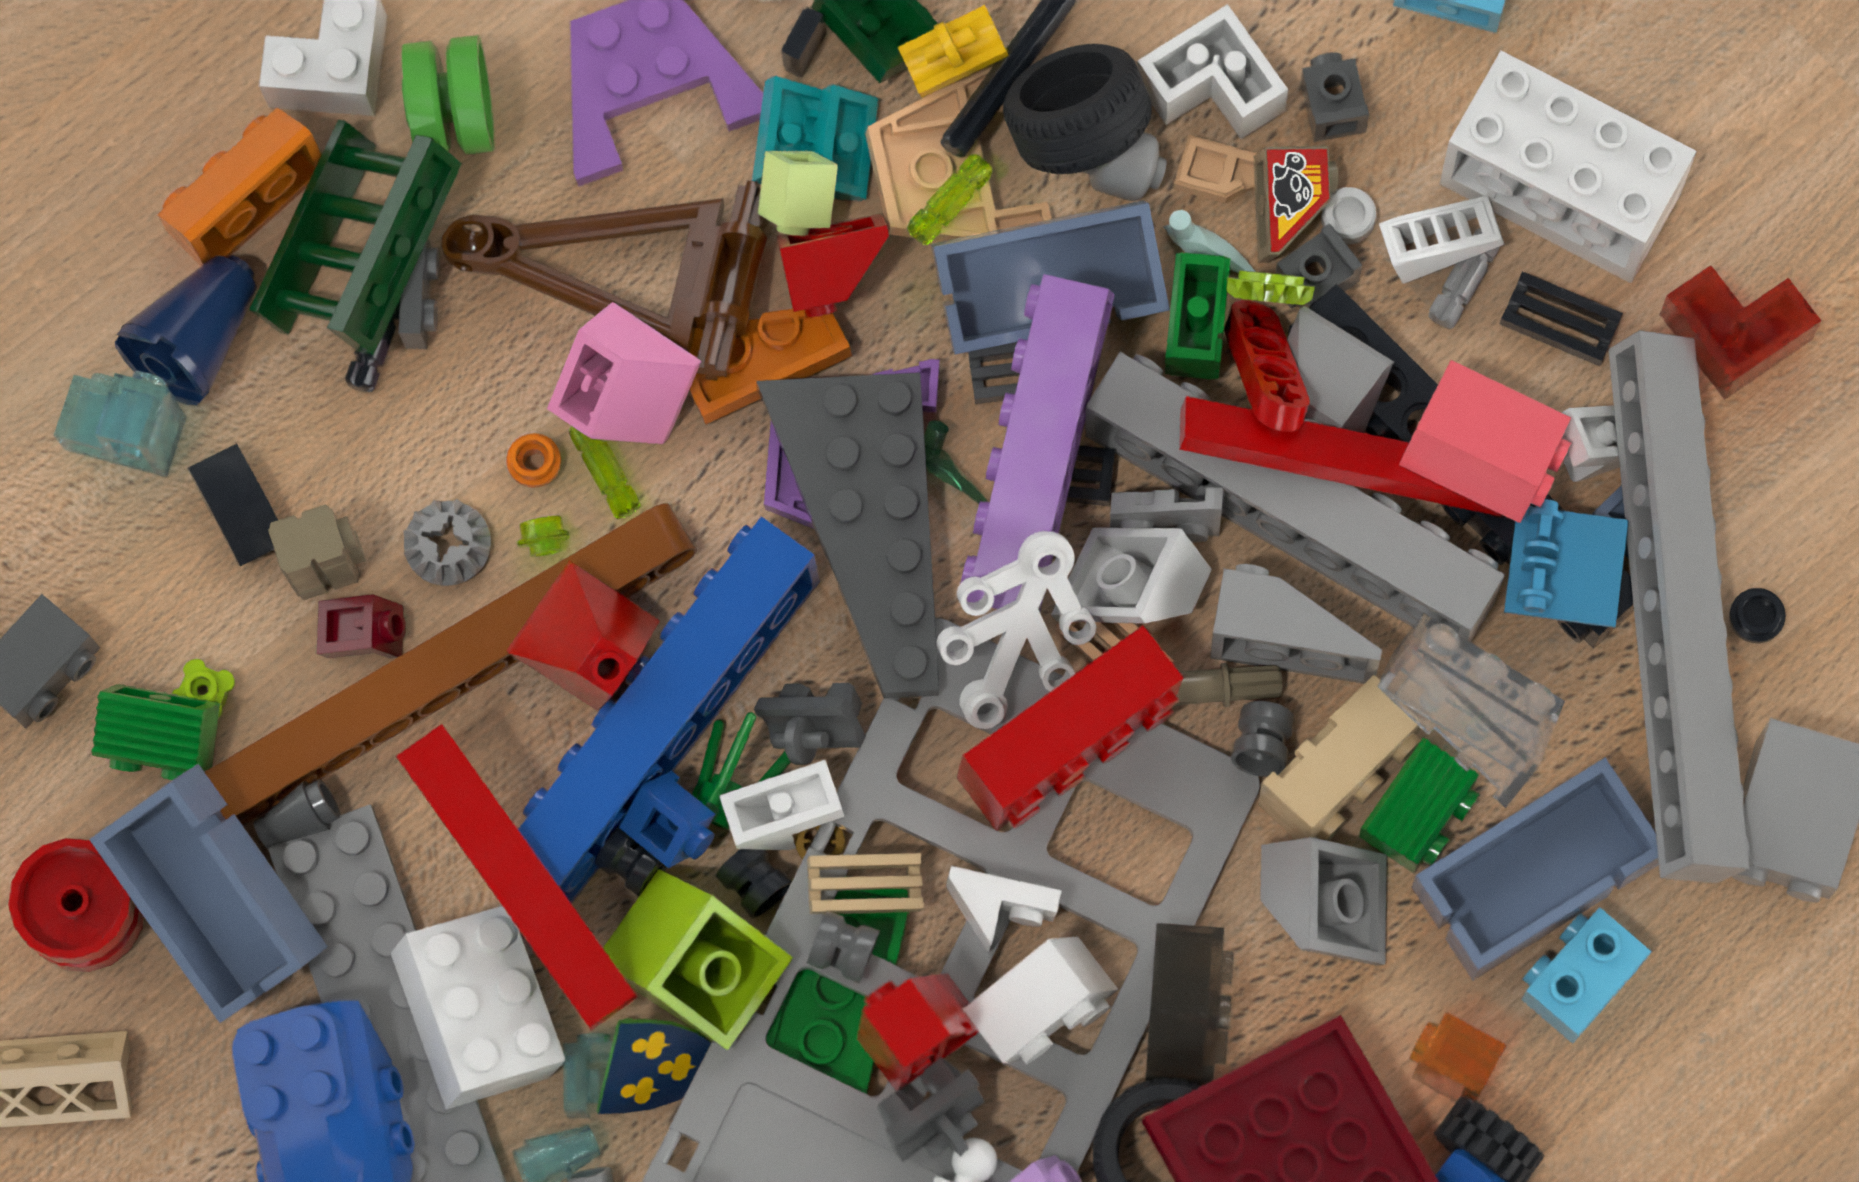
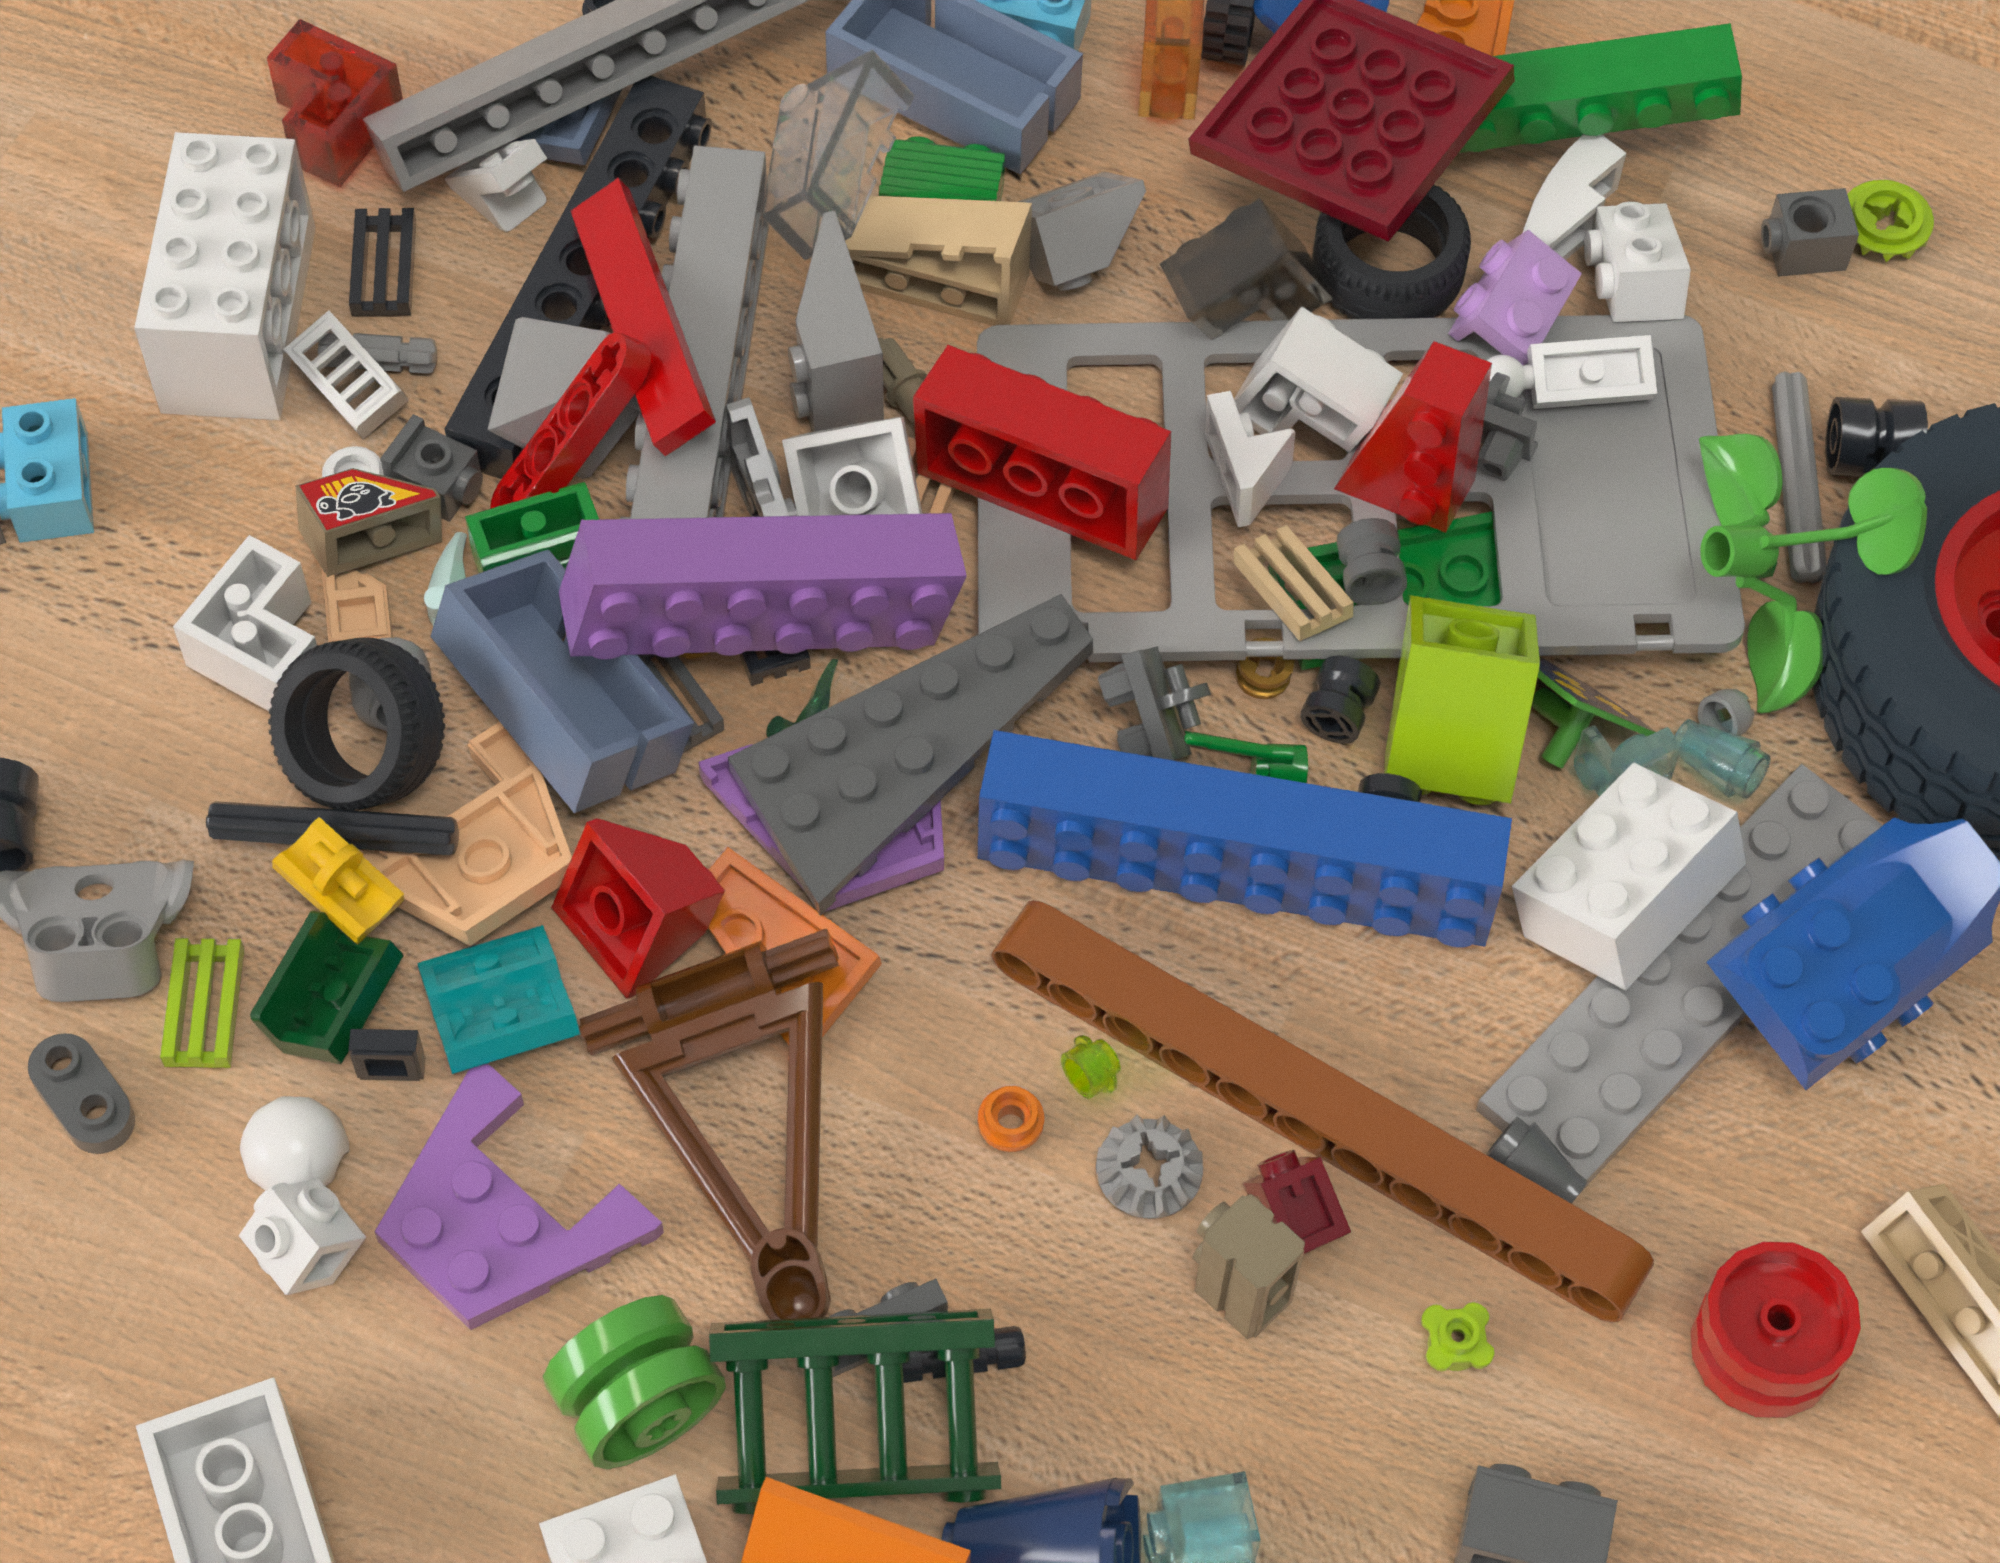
camera: 125 degrees left, 15 degrees down
(154, 730) = (1537, 1345): green brick -> none
(208, 893) = (1687, 1174): sand blue piece -> none
(235, 502) = (1229, 1400): black slope -> none
(516, 877) = (1494, 850): red tile -> none
(584, 636) = (1195, 921): red slope -> none
(606, 474) = (981, 1044): clear neon green axle -> none
(623, 380) = (881, 1045): bright pink slope -> none
(669, 821) = (1340, 762): blue brick -> none
(774, 809) = (1259, 682): white slope -> none
(797, 191) = (575, 963): yellowish green brick -> none
(949, 199) = (515, 812): clear neon green axle -> none
(1016, 623) = (960, 522): white plant -> none
(1263, 738) = (948, 324): dark grey wheel -> none
(1270, 288) = (483, 461): lime gear -> none
(1332, 114) = (224, 521): dark grey brick -> none
(1488, 442) = (563, 211): coral brick -> none
(1566, 566) = (648, 128): dark azure hinge -> none

